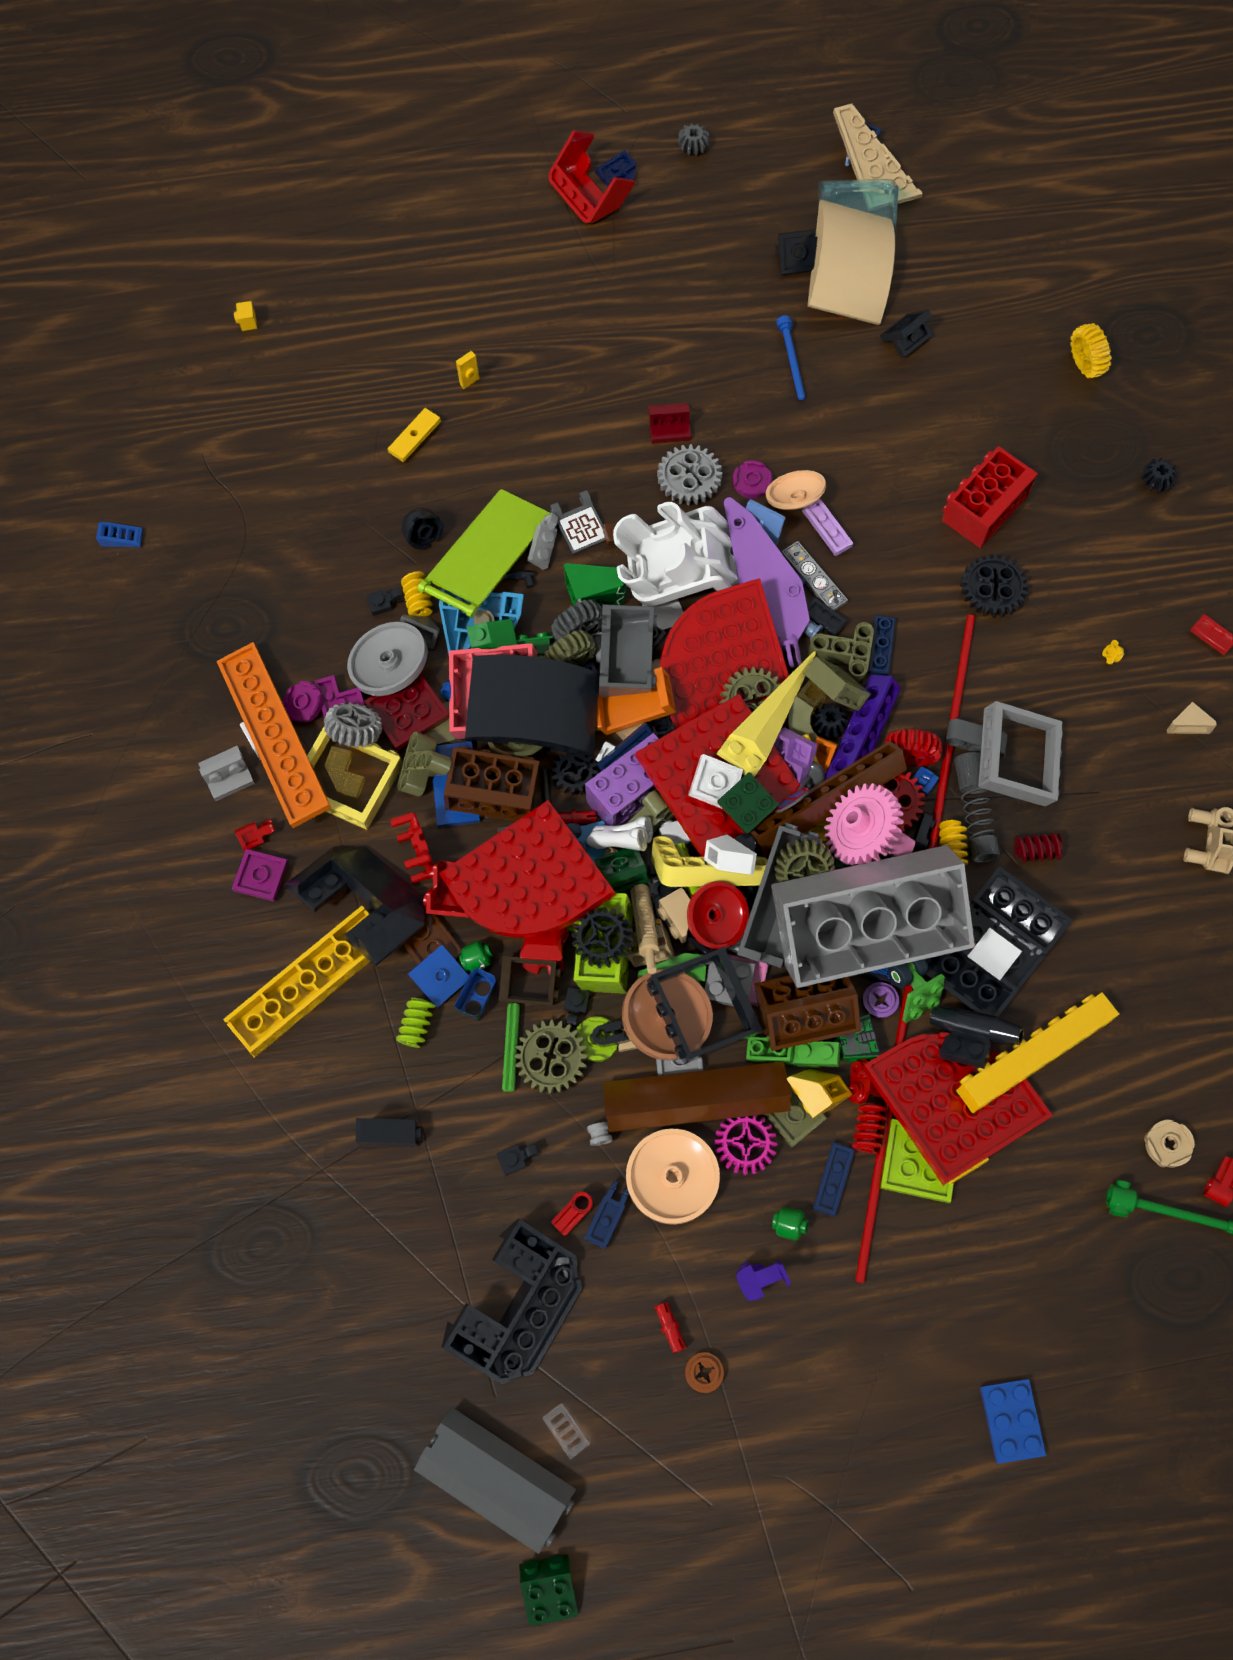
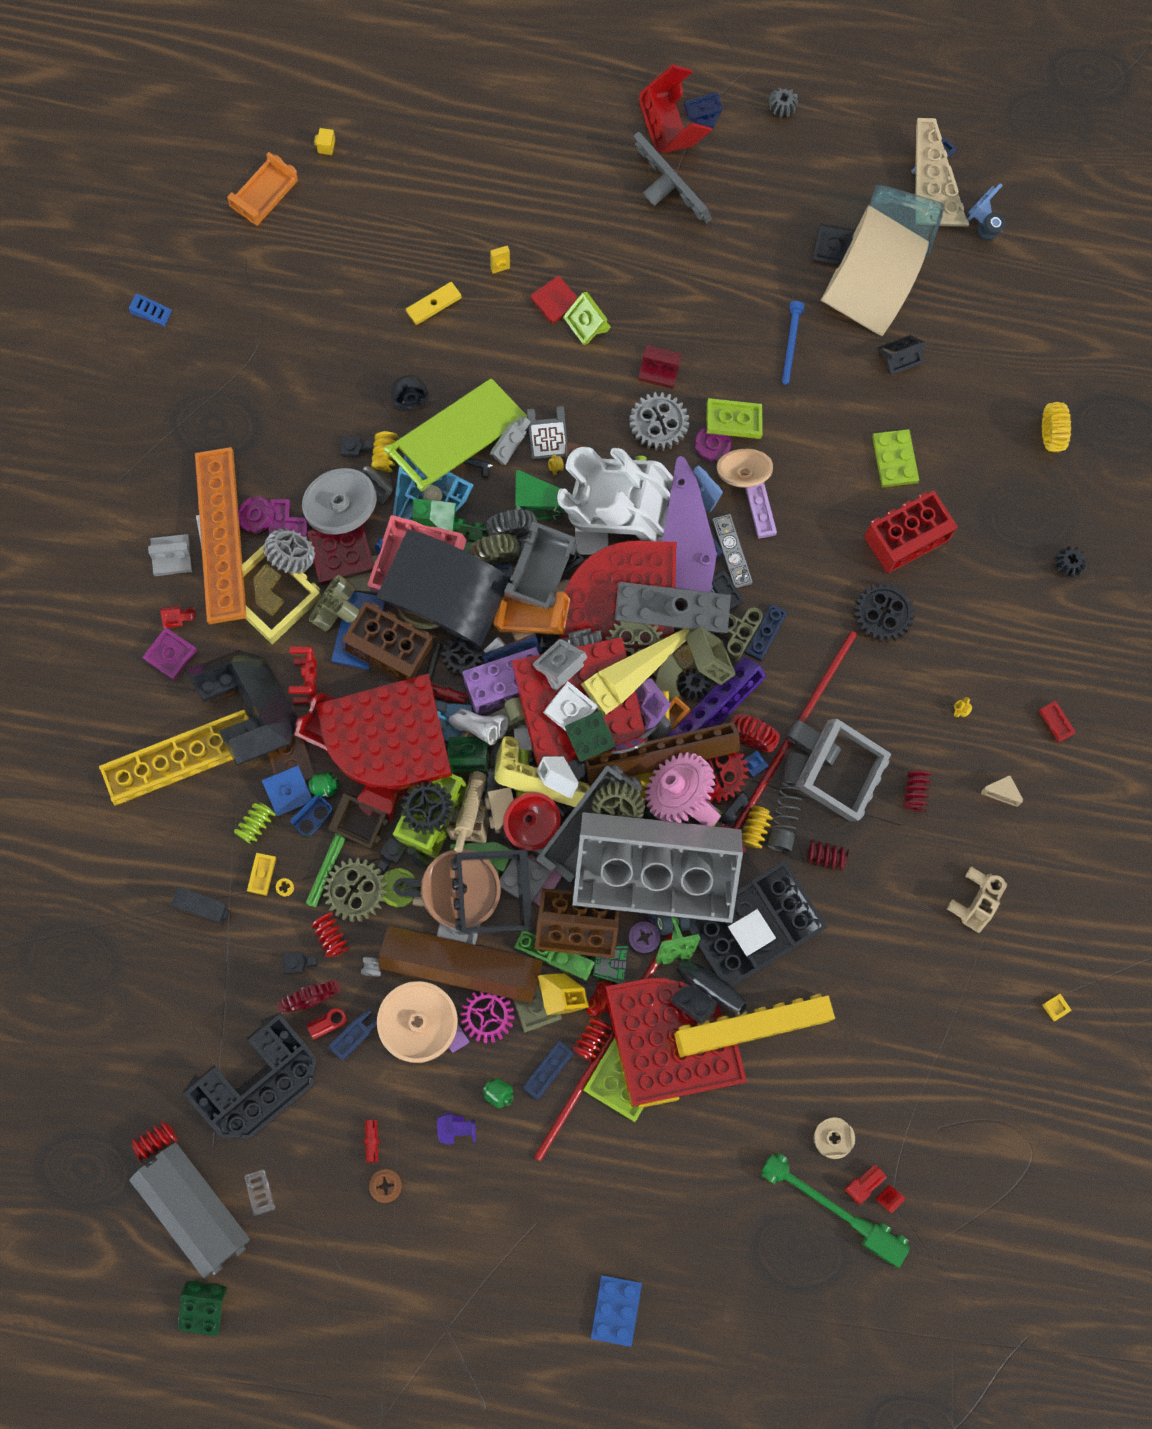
camera: 10 degrees right, 5 degrees up
(198, 381) = (264, 189): none -> orange panel
(426, 1414) = (153, 1141): none -> red piece
(442, 1075) = (261, 874): none -> yellow plate
(465, 1080) = (290, 889): none -> yellow bush
(537, 393) = (554, 299): none -> red tile
(541, 1116) = (329, 936): none -> red piece
(544, 1189) = (308, 996): none -> dark red gear
(577, 399) = (586, 318): none -> lime bracket
(599, 550) = (555, 464): none -> yellow plate
(606, 999) = (417, 857): none -> black bar
(610, 242) = (668, 181): none -> dark grey plate
(688, 737) = (560, 663): none -> light grey bracket
(696, 709) = (583, 637): none -> dark grey gear
(725, 1182) = (459, 1041): none -> medium lavender tile
(765, 446) = (734, 418): none -> lime plate
(778, 647) = (657, 607): none -> dark grey plate
(942, 434) = (895, 458): none -> lime plate
(943, 184) = (990, 223): none -> plate
(1102, 752) = (916, 789): none -> dark red piece

